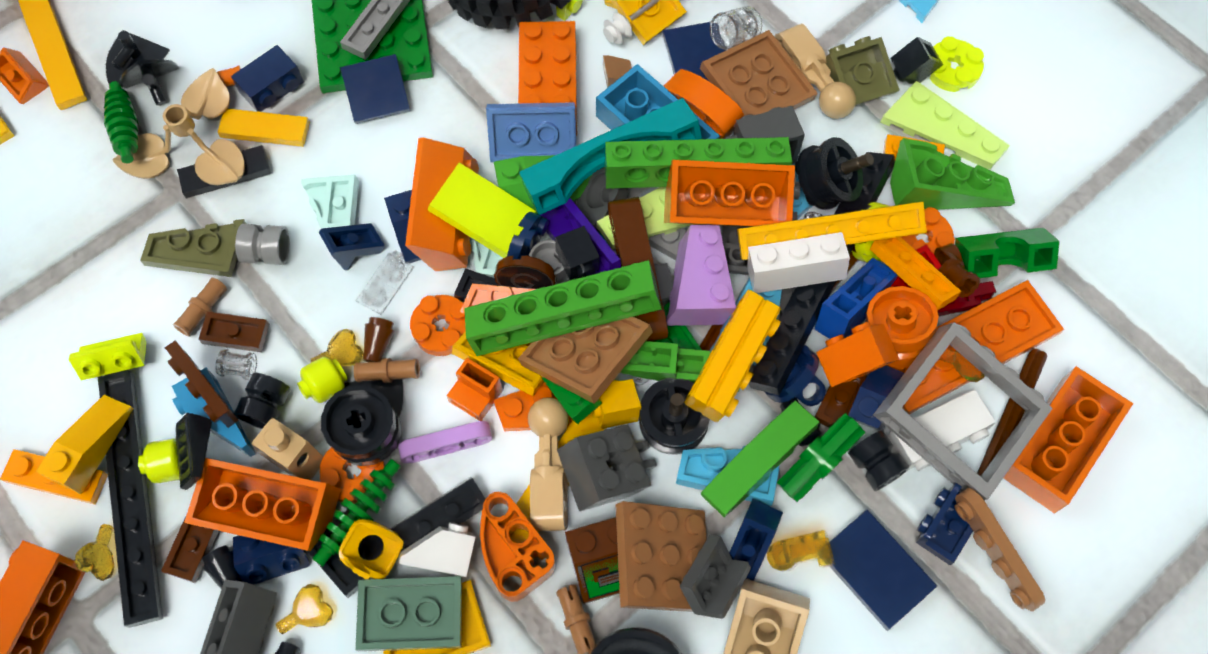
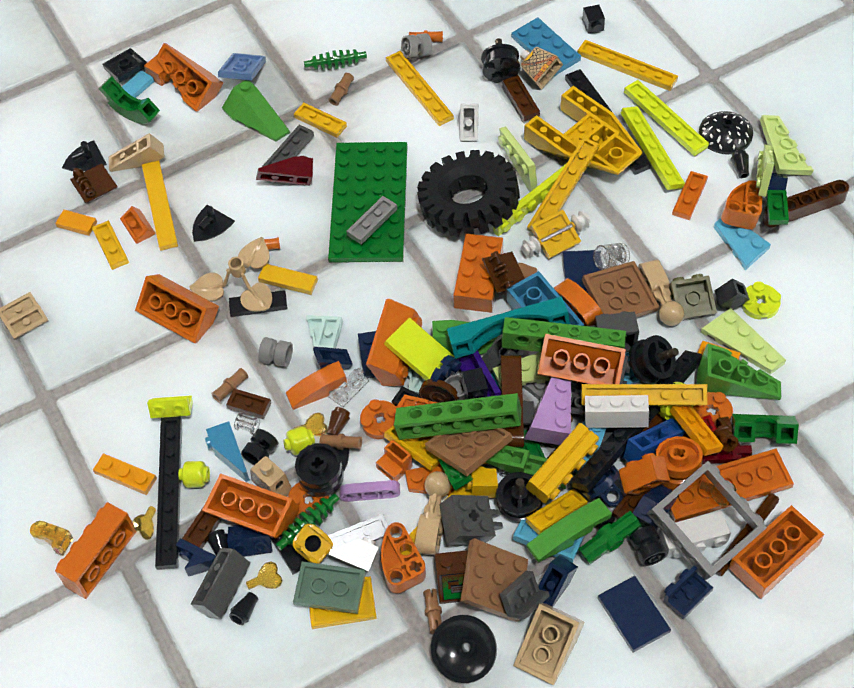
camera: 15 degrees right, 10 degrees down
(84, 444) = (148, 455): yellow slope -> none
(96, 196) = (176, 307): none -> orange slope
(121, 122) = (198, 263): green piece -> none
(146, 72) = (220, 233): black shield -> none
(192, 444) = (213, 466): black slope -> none
(193, 601) = (198, 558): none -> dark blue slope
(197, 251) = (232, 350): olive wing -> none
(199, 385) = (224, 430): reddish brown plate -> none
(267, 79) = (295, 248): dark blue brick -> none
(334, 287) = (316, 385): none -> orange slope
(375, 89) = (364, 264): dark blue tile -> none
(530, 129) = (460, 303): medium blue tile -> none
(585, 70) = (503, 270): none -> reddish brown hinge
(731, 432) = (556, 511): none -> yellow tile
(788, 553) = (585, 591): clear yellow leg -> none
(994, 541) = (717, 617): medium nougat plate -> none

